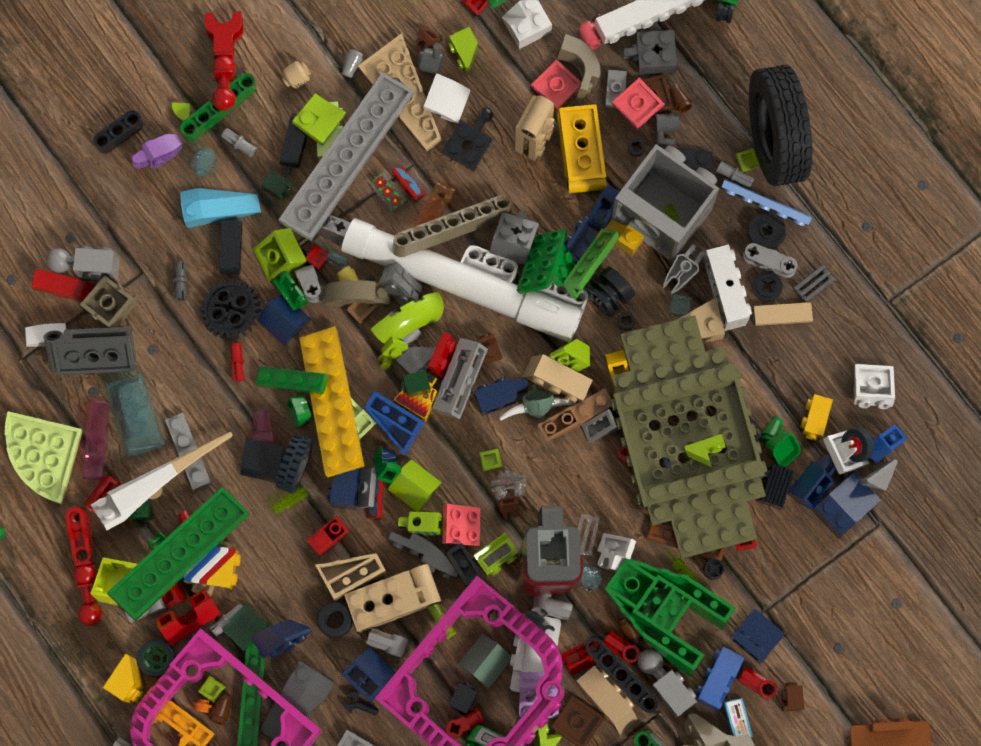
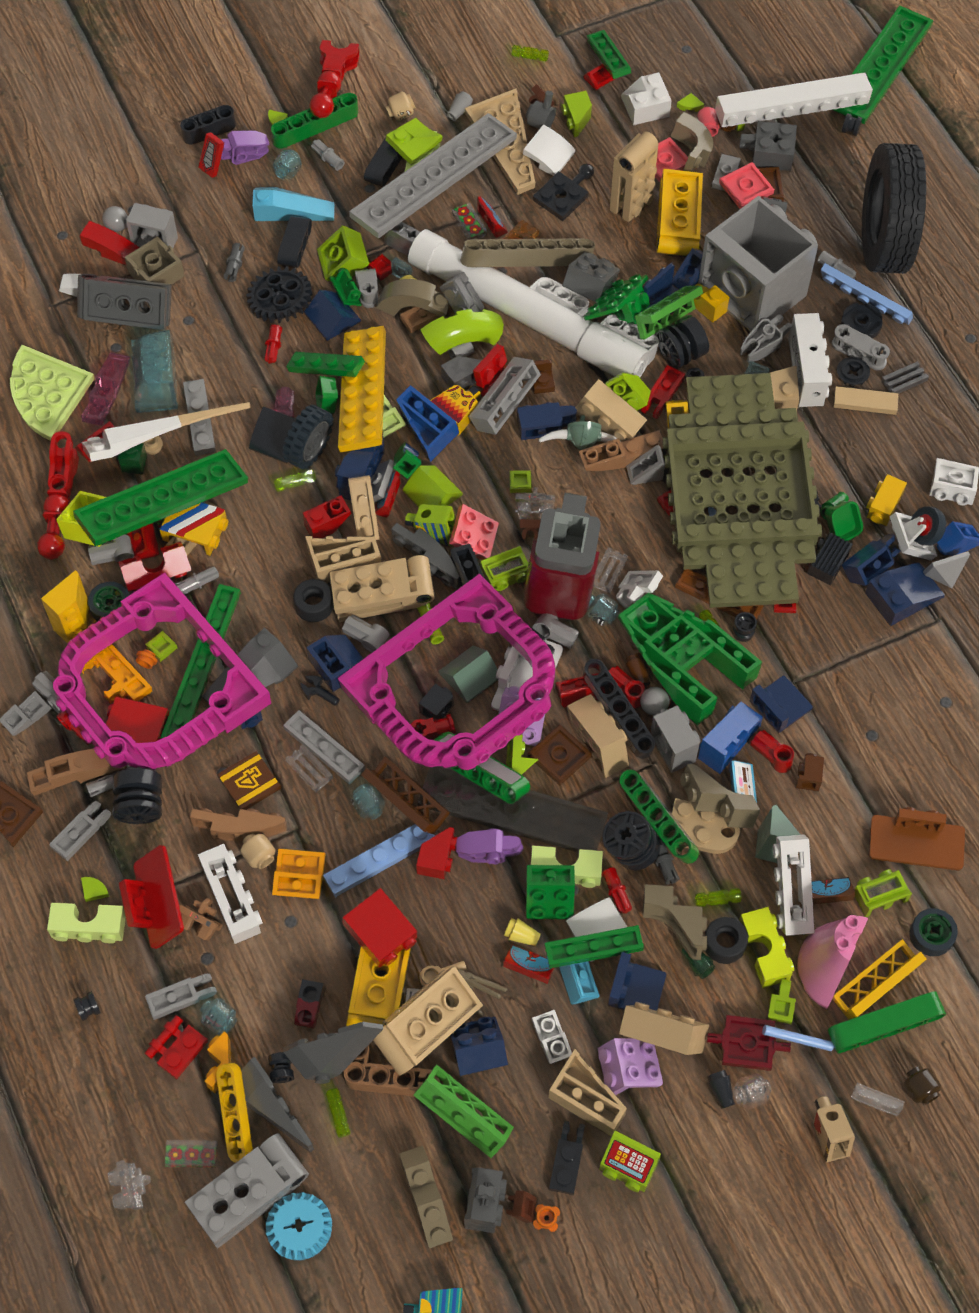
camera: 10 degrees right, 15 degrees down
(131, 170) = (211, 154): none -> red tile
(220, 711) = (164, 668): reddish brown cone -> none
(244, 626) = (213, 586): clear green piece -> none
(277, 186) = (354, 193): clear green brick -> none
(280, 637) = (248, 601): dark blue slope -> none
(360, 525) = (363, 507): none -> tan tile
(392, 350) = (438, 355): lime plate -> none
(416, 384) = (456, 386): dark green brick -> none
(568, 15) = (690, 102): none -> lime tile
(602, 338) = (664, 389): none -> red hinge
(680, 99) = (792, 192): reddish brown cone -> none
(700, 450) = (752, 496): lime slope -> none
(747, 160) = (852, 256): lime tile -> none

